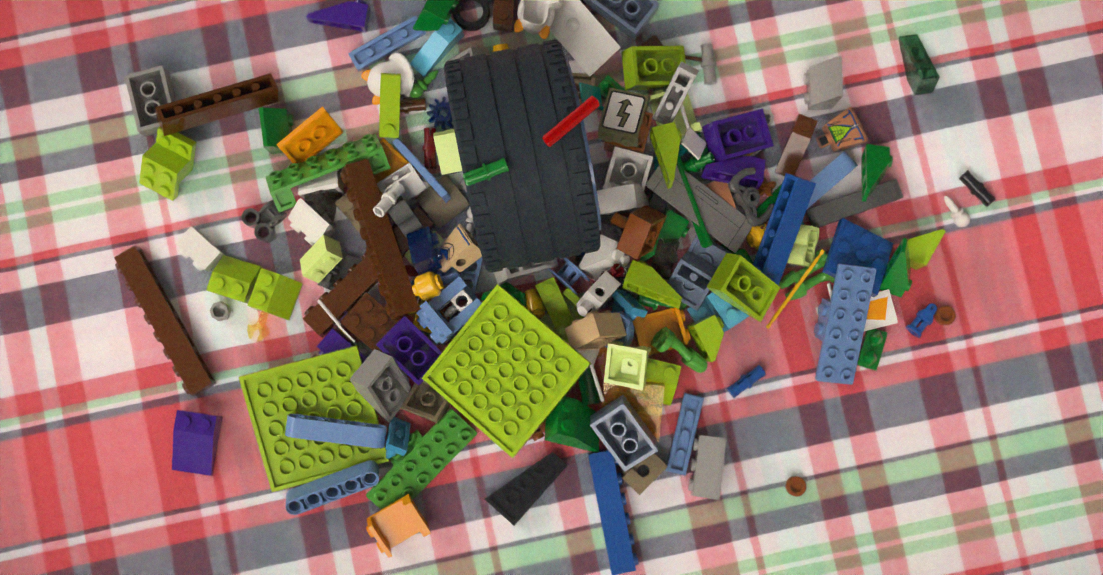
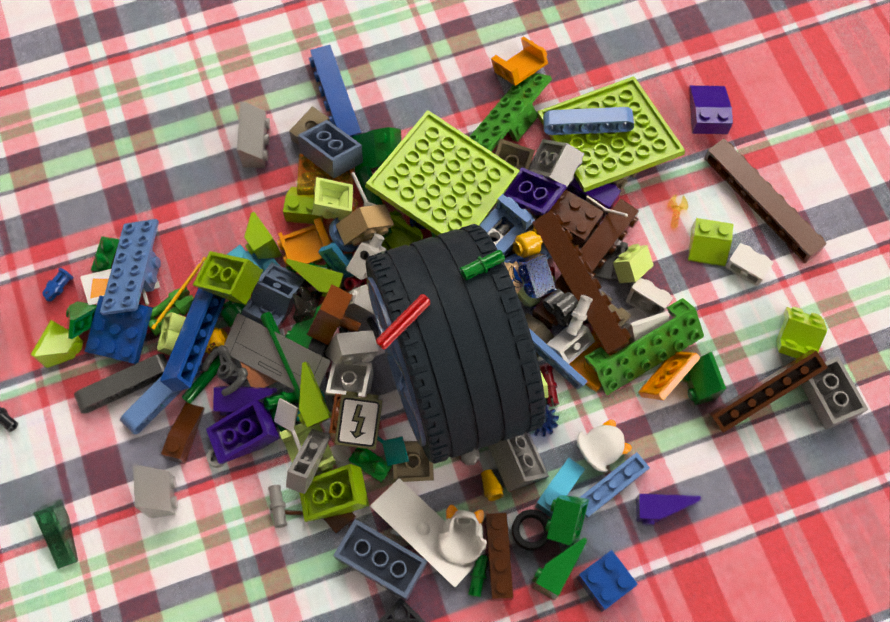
camera: 170 degrees right, 15 degrees down
(220, 311) = (716, 213): light grey tile -> none
(264, 220) = (695, 296): dark grey piece -> none
(275, 294) = (669, 233): lime slope -> none
(324, 201) = (645, 310): clear smoke tile -> none
(325, 494) = (582, 83): medium blue beam -> none
(389, 105) = (596, 412): lime slope -> none
(397, 437) = (532, 126): dark azure tile -> none
(412, 105) = (567, 426): reddish brown pin -> none
(420, 86) = (570, 445): bright green bar -> none
(524, 490) = (418, 98): black wing -> none
(666, 338) = (295, 231): bright green piece -> none
(684, 434) = (276, 166): medium blue tile -> none
(746, 381) = (212, 221): blue pin -> none
(766, 187) = (210, 387): dark orange plant -> none
(795, 486) = (174, 135): dark orange tile -> none
(842, 132) = (135, 450): nougat torso -> none
(874, 165) = (103, 419): green slope -> none
(945, 315) = (34, 293): dark orange tile -> none
(961, 218) = (19, 387): white bar -> none

